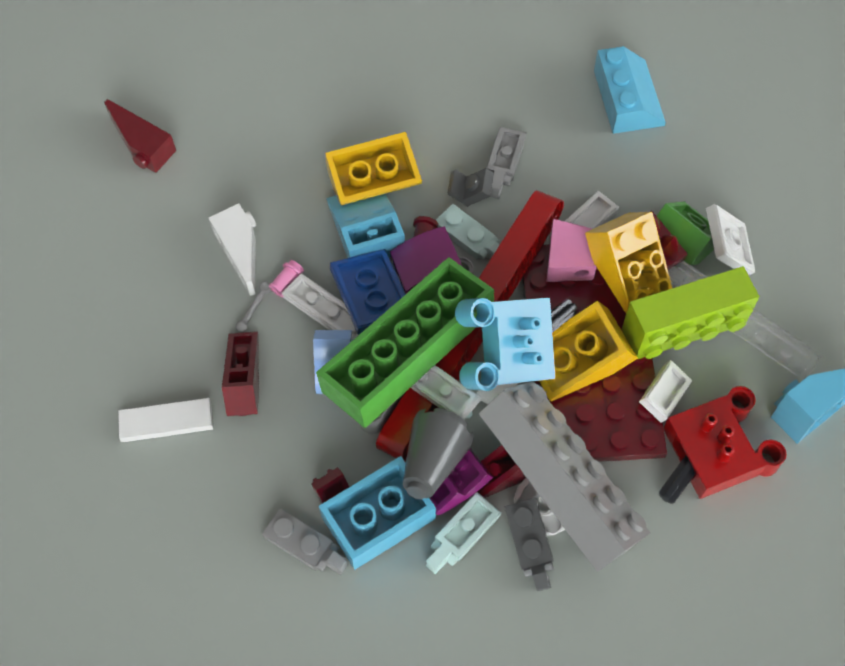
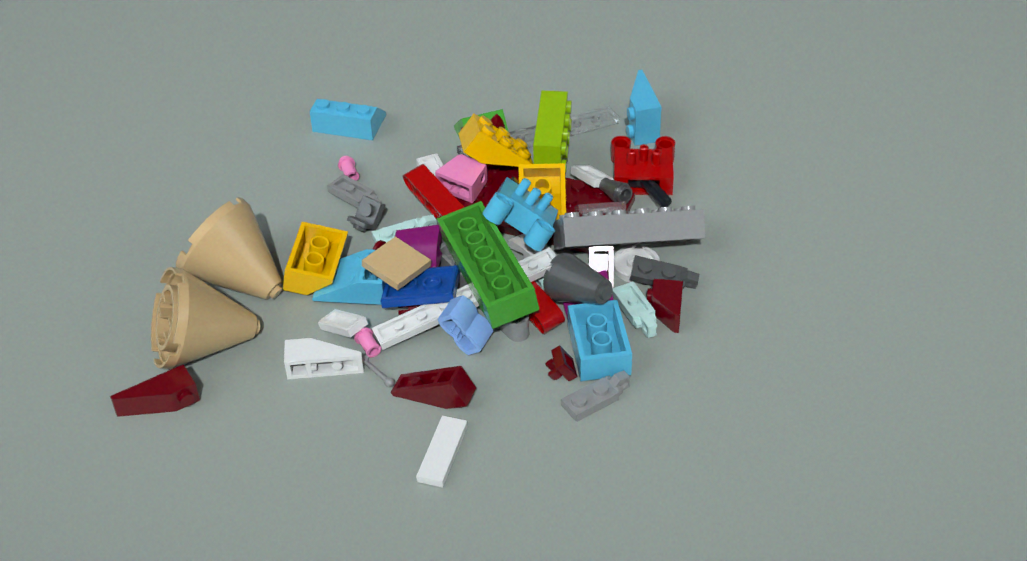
camera: 65 degrees left, 20 degrees down
(221, 114) = (195, 320): none -> tan cone
(297, 243) = (342, 323): none -> white tile
(329, 94) = (232, 253): none -> tan cone
(382, 250) = (396, 263): none -> tan tile
(485, 567) = (666, 301): none -> dark red slope
(547, 129) = (347, 165): none -> bright pink pin
(587, 424) = (605, 207): none -> clear tile
(642, 431) = (616, 190): none -> flat silver cone
(730, 239) = (509, 109): white tile -> none

